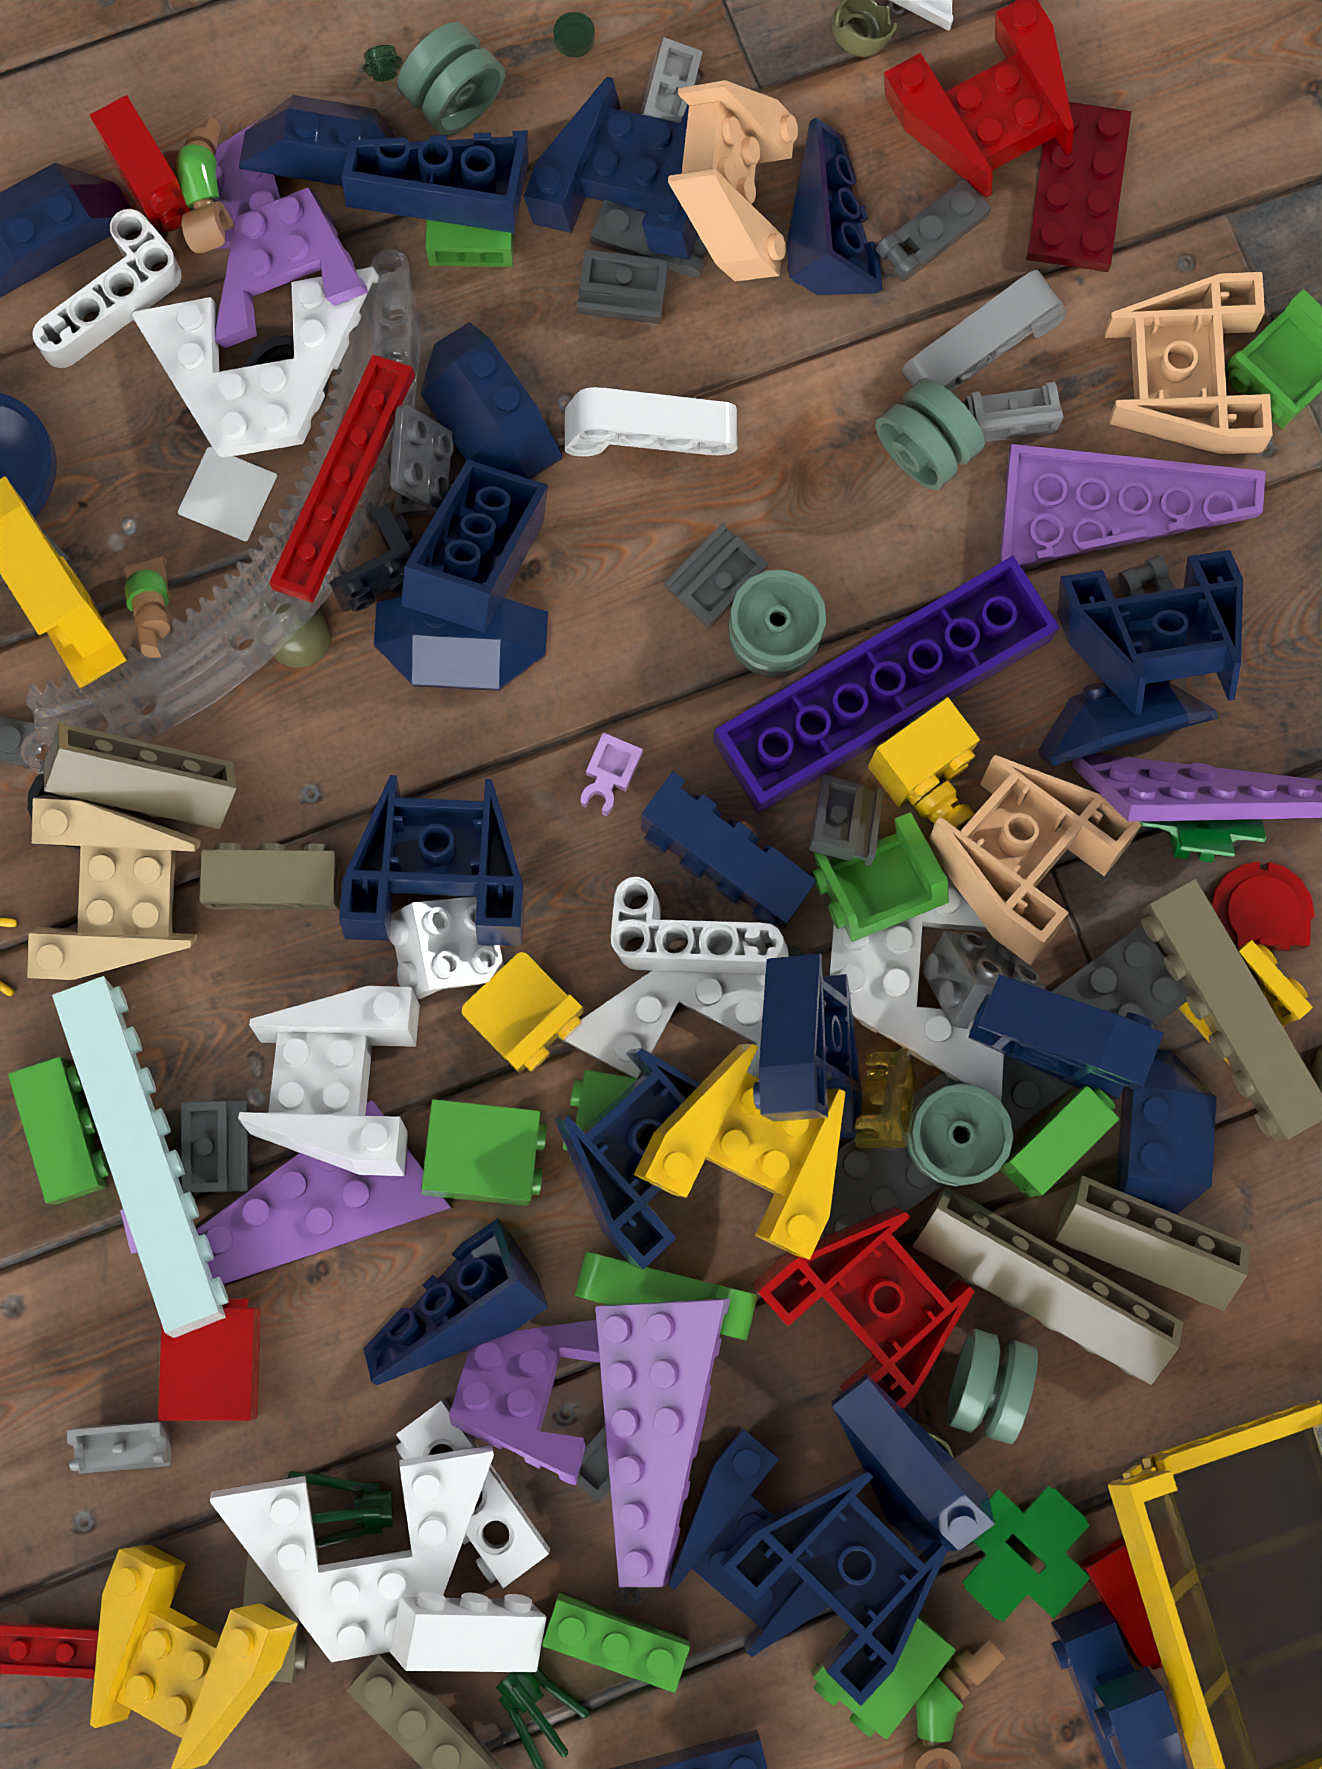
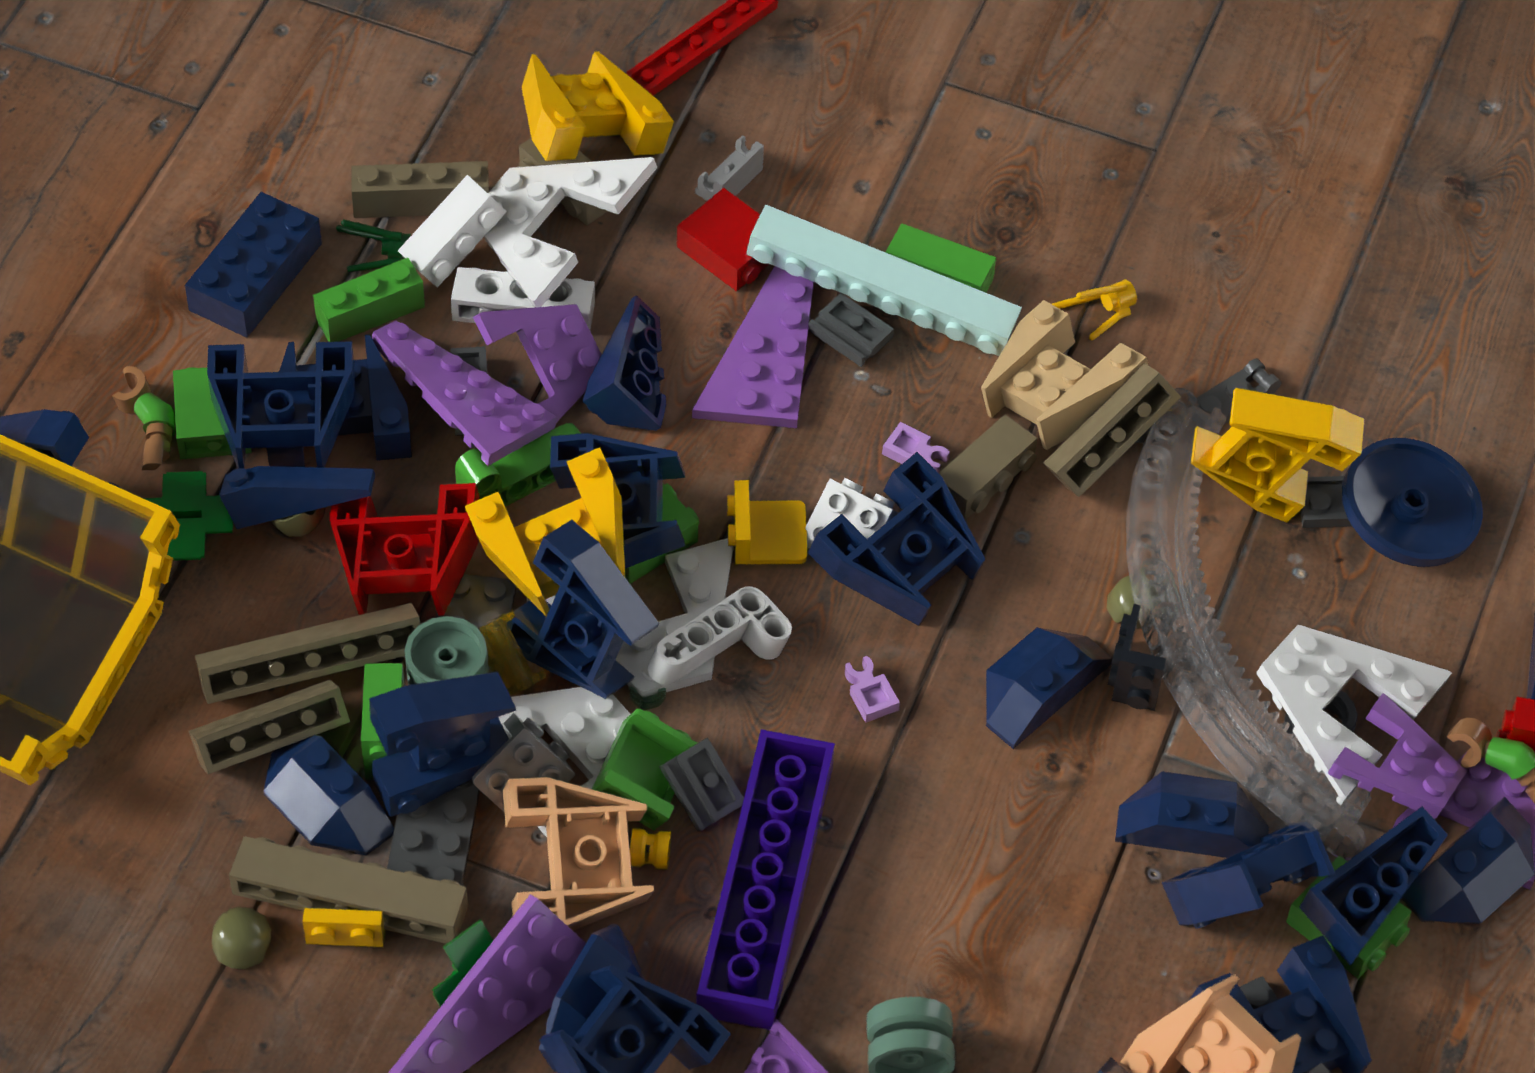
camera: 135 degrees right, 25 degrees down
(102, 292) = (1474, 662): white beam -> none
(147, 598) = (1230, 515): medium nougat piece -> none
(227, 494) = (1263, 632): white sticker -> none
(308, 969) = (907, 441): none -> lavender plate
(324, 1078) = (826, 394): white wedge -> none
(342, 479) = (1206, 661): red plate -> none
(371, 1509) = (569, 242): dark green plant -> none
(382, 62) = (1516, 954): clear green plate -> none
(419, 463) = (1182, 726): flat silver bracket -> none
(451, 78) = (1457, 966): sand green wheel -> none
(474, 545) = (1091, 707): dark blue brick -> none
(482, 1153) = (709, 438): bright green brick -> none
(521, 274) = (1237, 881): none -> dark blue wedge
(622, 286) = (1204, 959): dark grey plate -> none
(648, 421) = (1082, 890): white beam -> none
(714, 575) = (941, 853): dark grey plate -> none
(724, 853) = (767, 697): dark blue wedge -> none
(800, 620) = (871, 849): sand green wheel -> none
(924, 752) = (696, 854): yellow brick -> none
(992, 1386) = (290, 570): sand green wheel -> none
(1264, 906) = (389, 984): red piece -> none

